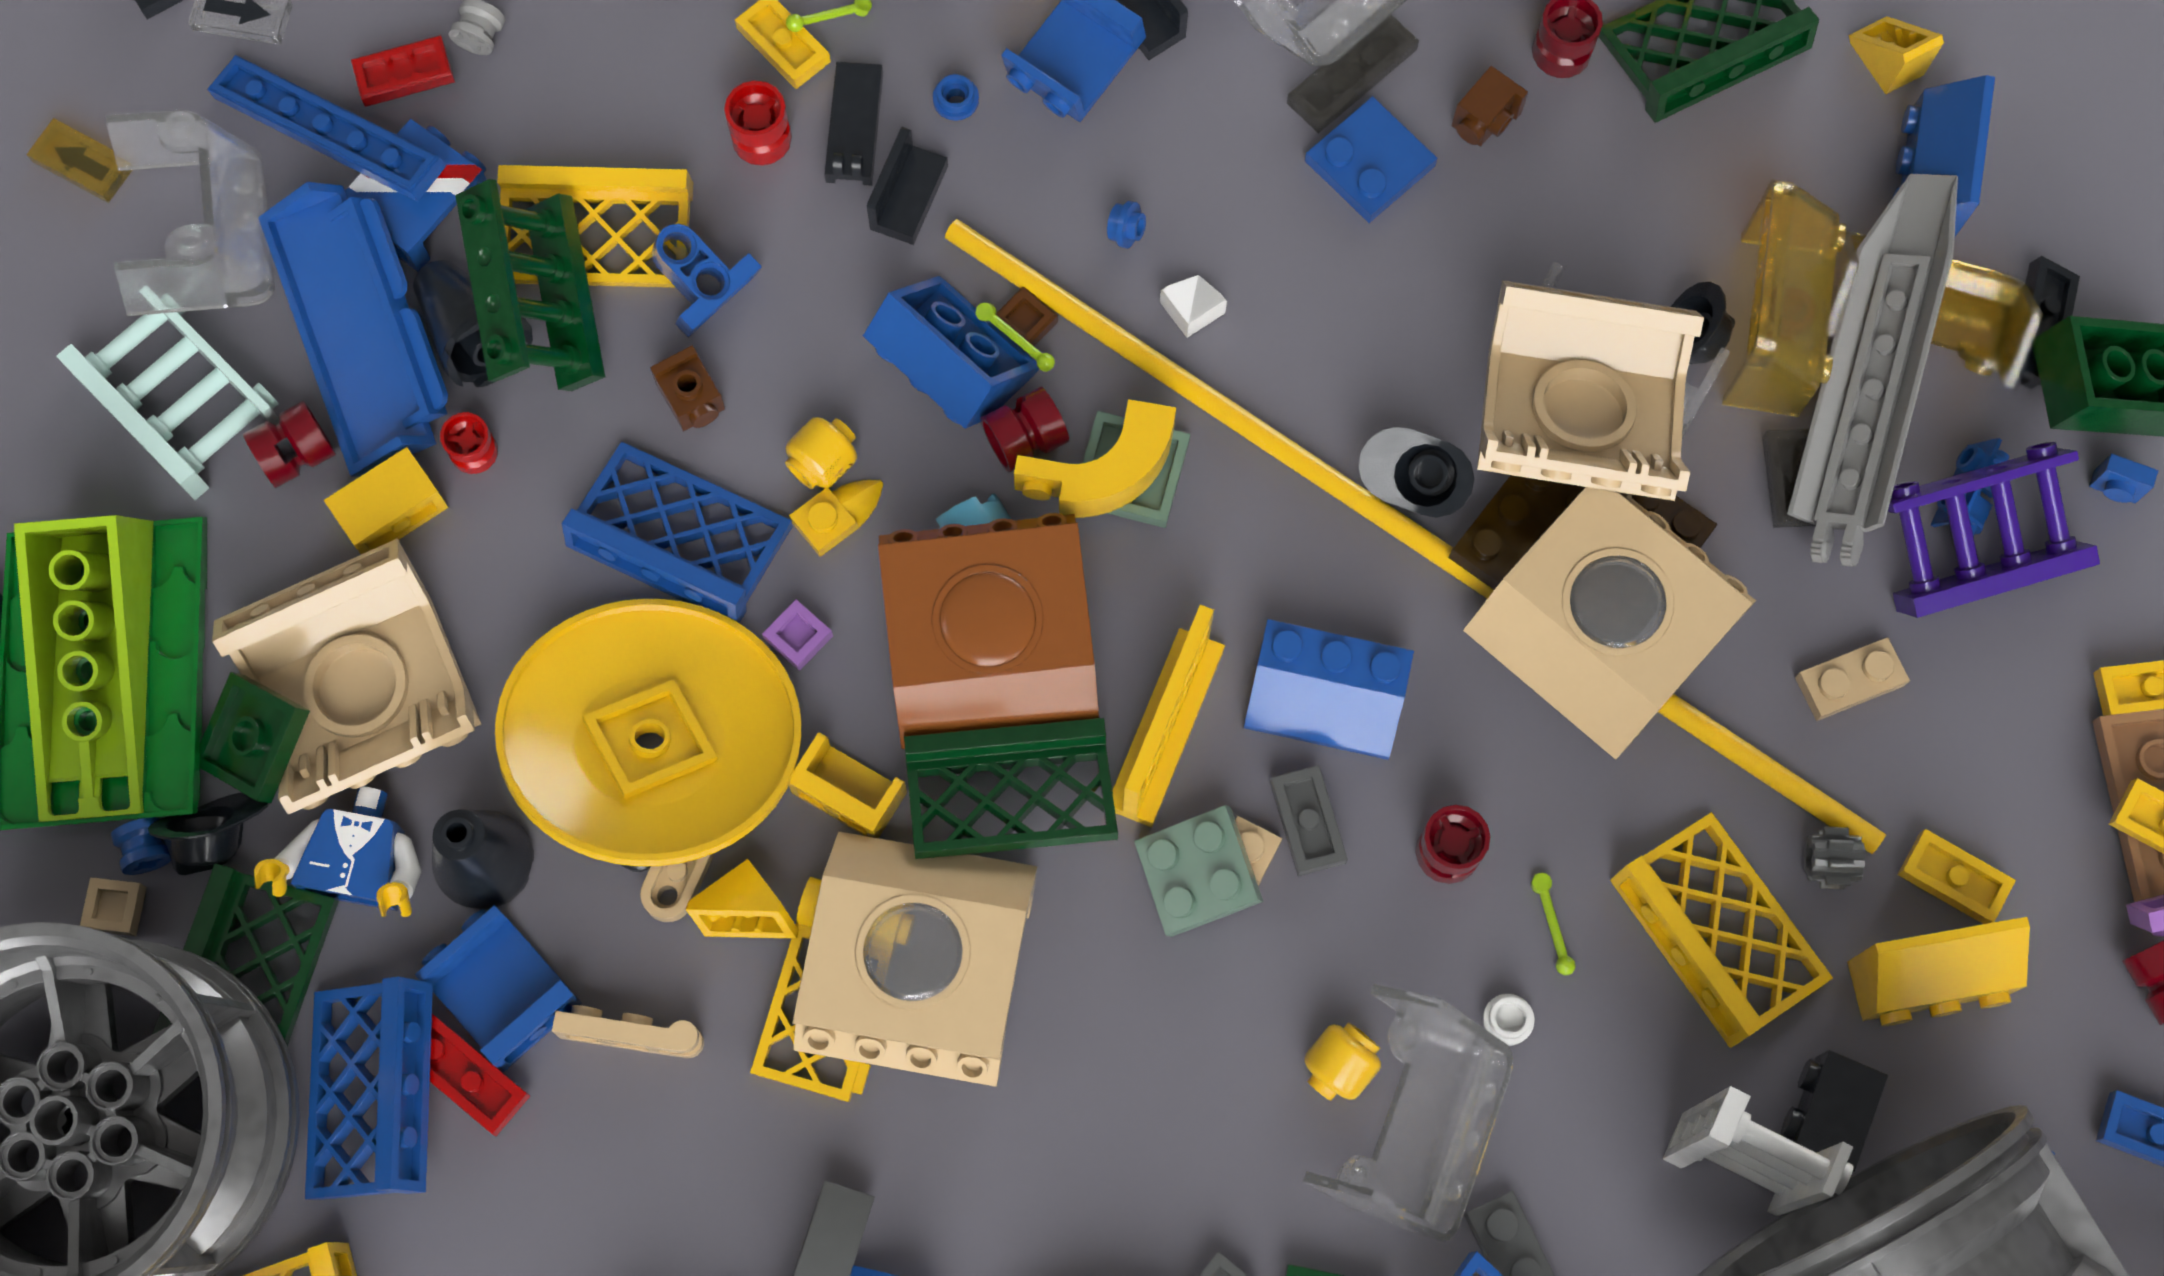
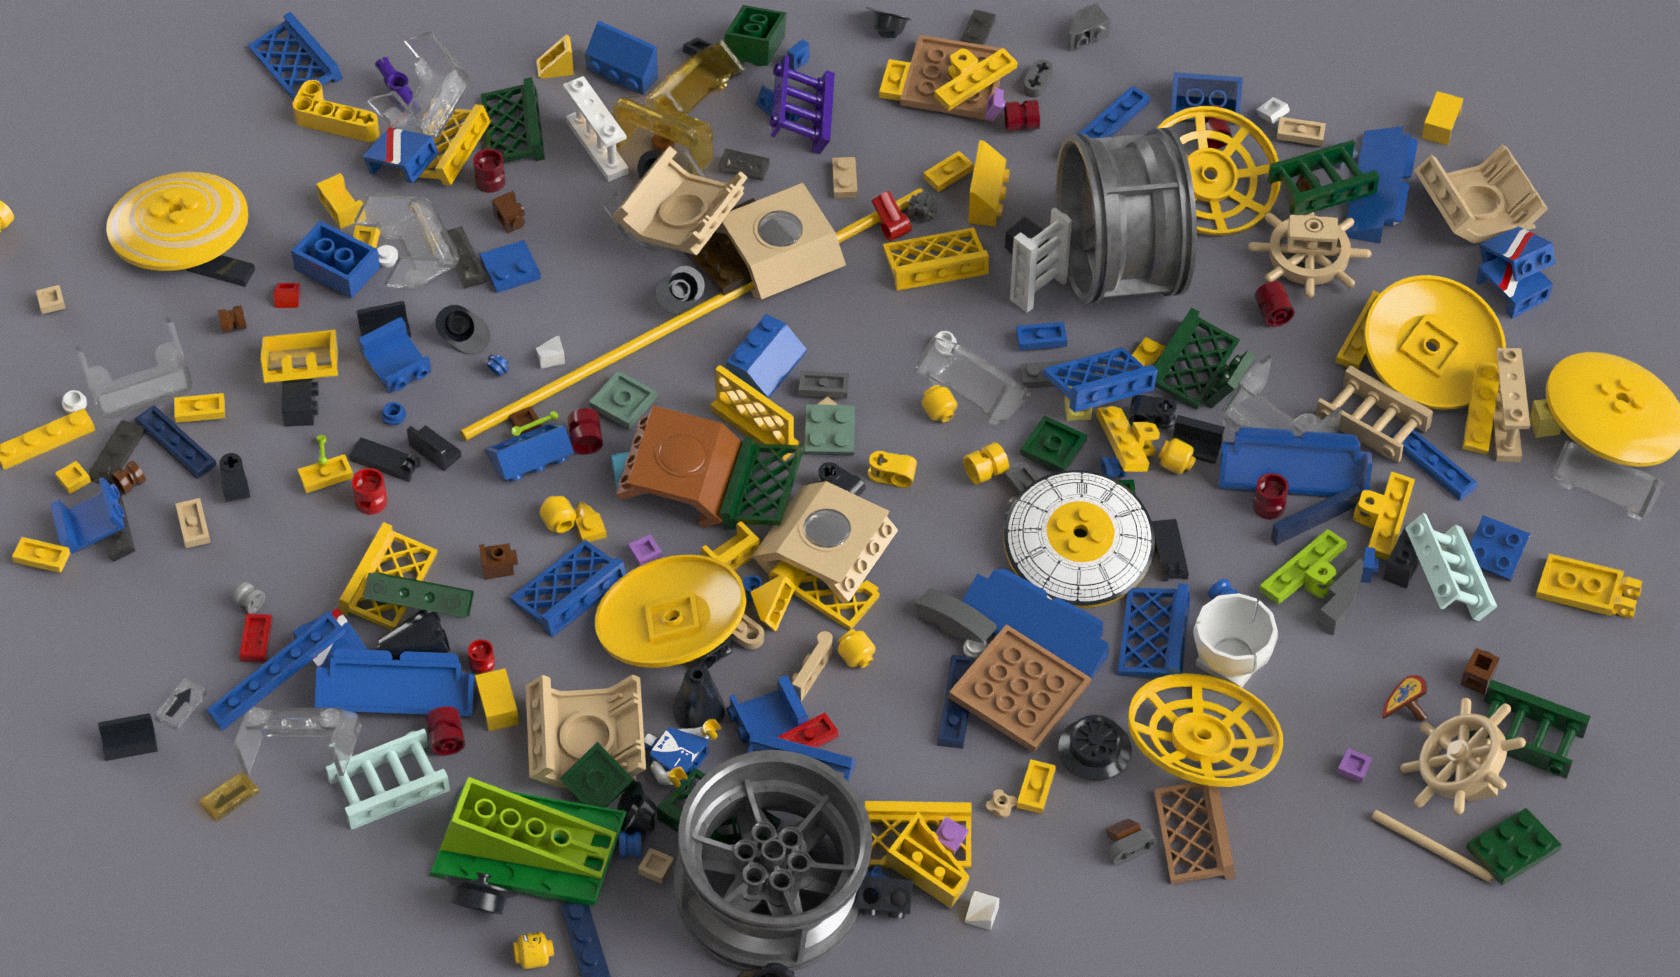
camera: 70 degrees left, 20 degrees down
(692, 1102) = (856, 649): none -> yellow head
(700, 261) = (441, 537): blue tile -> none
(781, 843) = (751, 581): none -> blue plate
(1072, 944) = (841, 478): none -> black piece
(1112, 479) = (622, 386): yellow arch -> none
(1148, 1033) = (893, 470): none -> yellow piece
(1179, 132) = (462, 329): none -> black piece
(1240, 1217) = (988, 462): none -> yellow wheel
(1453, 844) = (859, 333): dark red wheel -> none
(1541, 885) = (888, 314): lime hinge -> none
(1602, 1211) = (1041, 336): none -> blue plate
(1739, 175) = (596, 129): none -> white fence
(1772, 812) = (894, 222): none -> red piece
(1876, 367) = (730, 119): light grey hinge -> none

